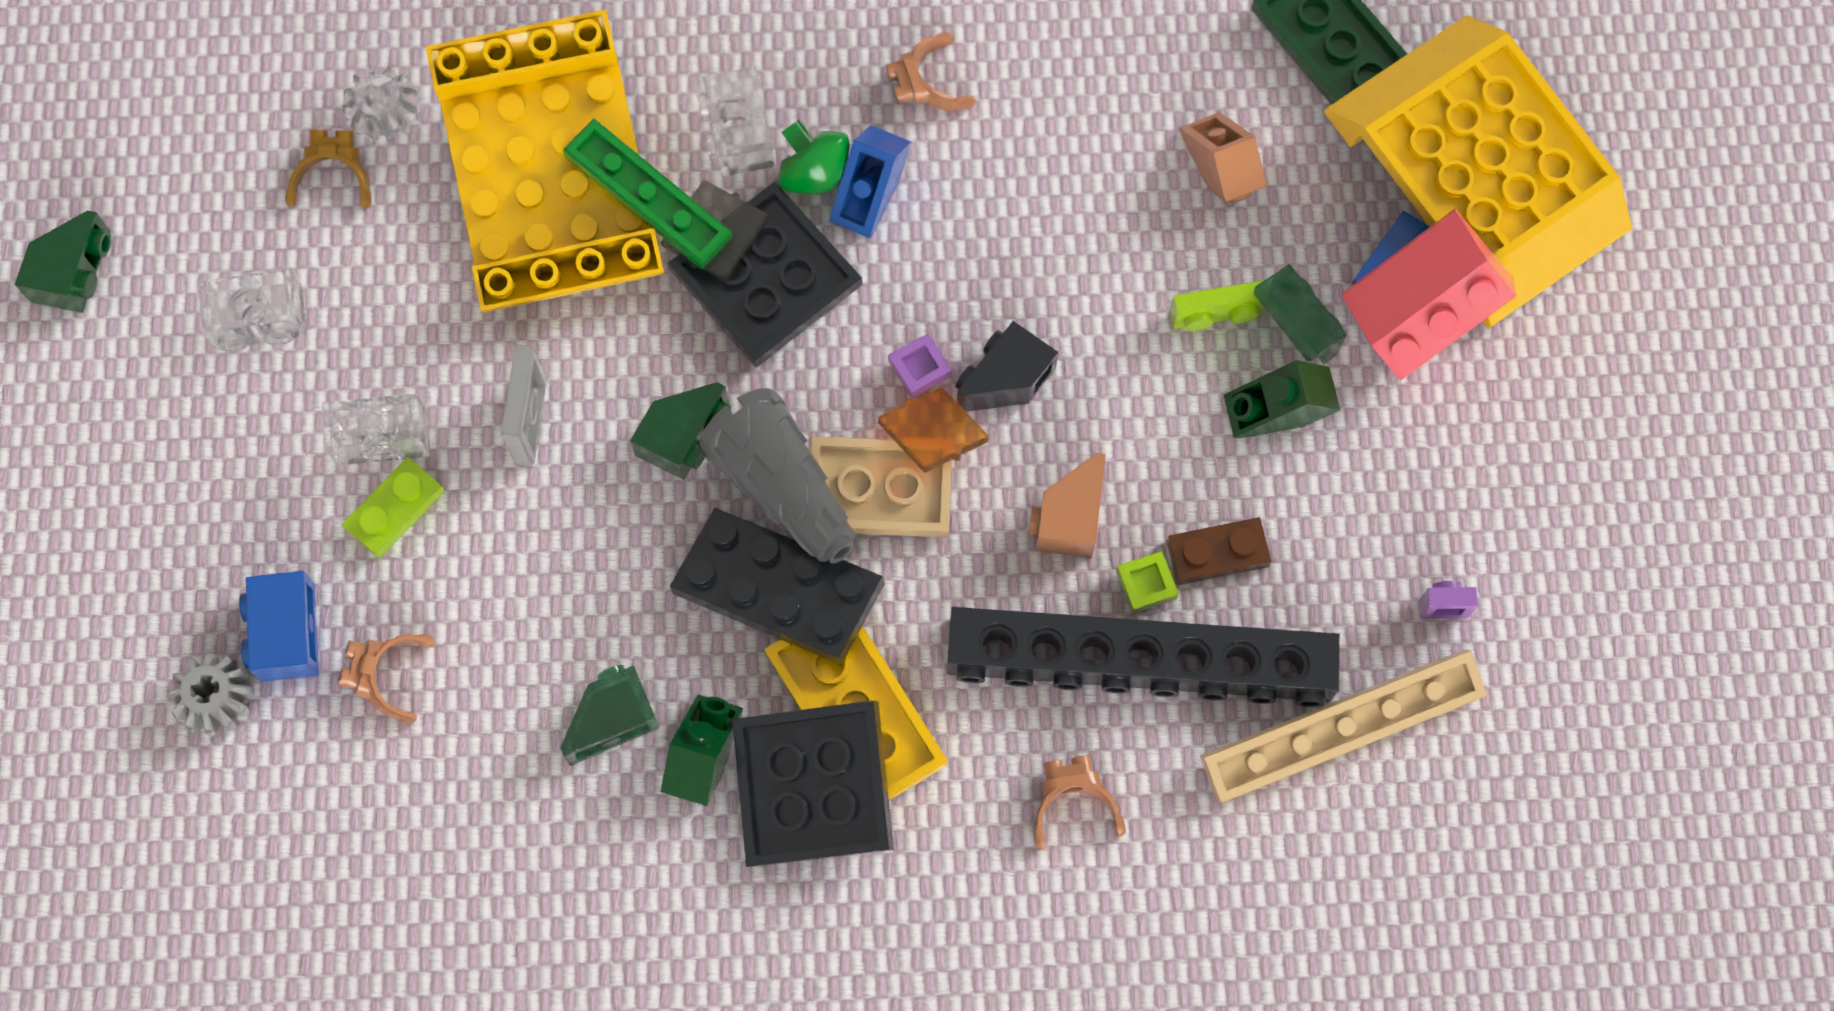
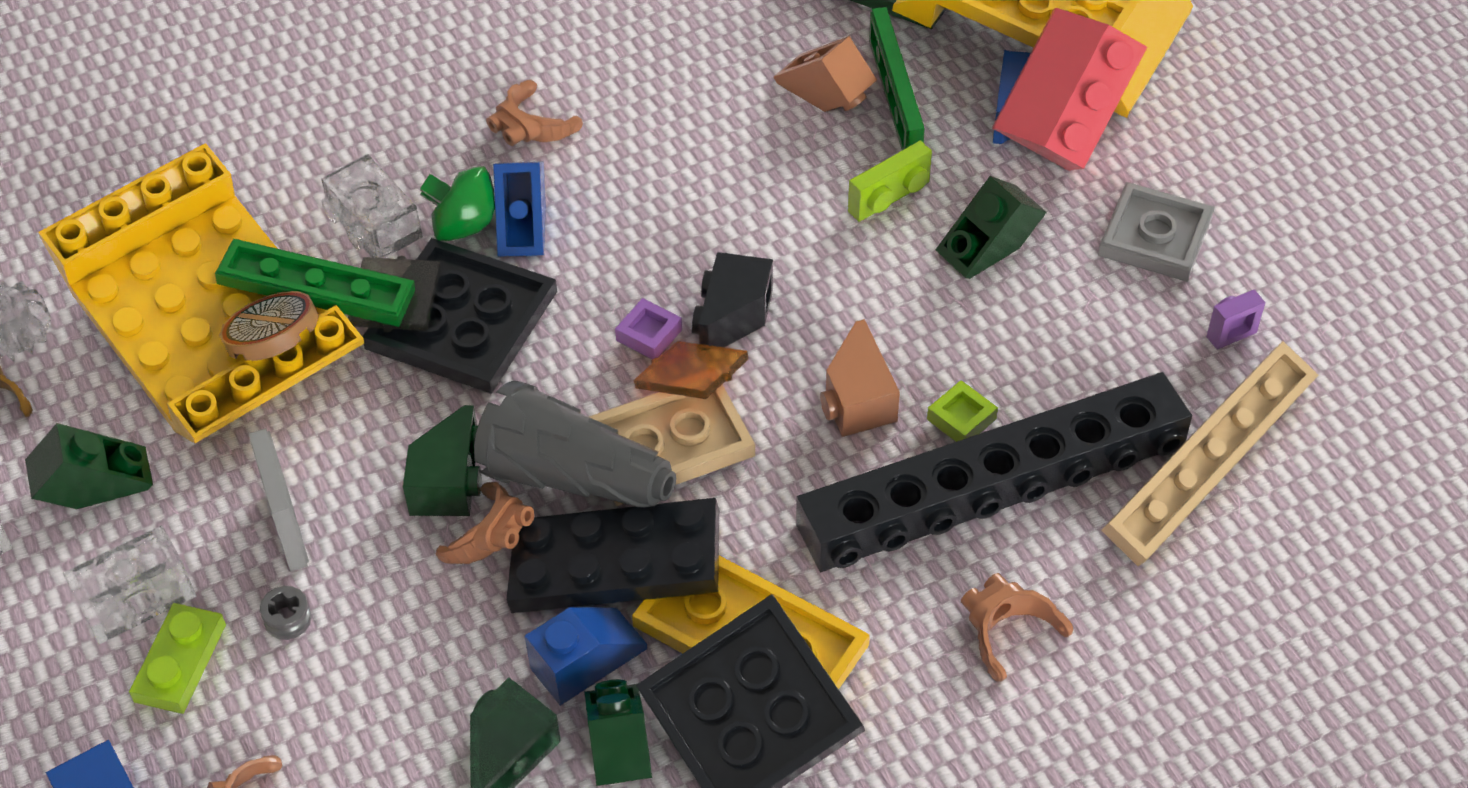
camera: 25 degrees left, 20 degrees down
(388, 292) = (85, 468): none -> dark green slope
(505, 516) = (275, 623): none -> flat silver bush
(585, 227) = (269, 325): none -> tile
(694, 516) = (494, 532): none -> nougat helmet
(713, 658) = (581, 649): none -> blue slope
(1218, 551) = (1010, 365): reddish brown plate -> none
(1285, 192) = (895, 79): none -> green tile
(1301, 315) = (967, 154): clear green bracket -> none
(1439, 469) = (1156, 231): none -> light grey tile

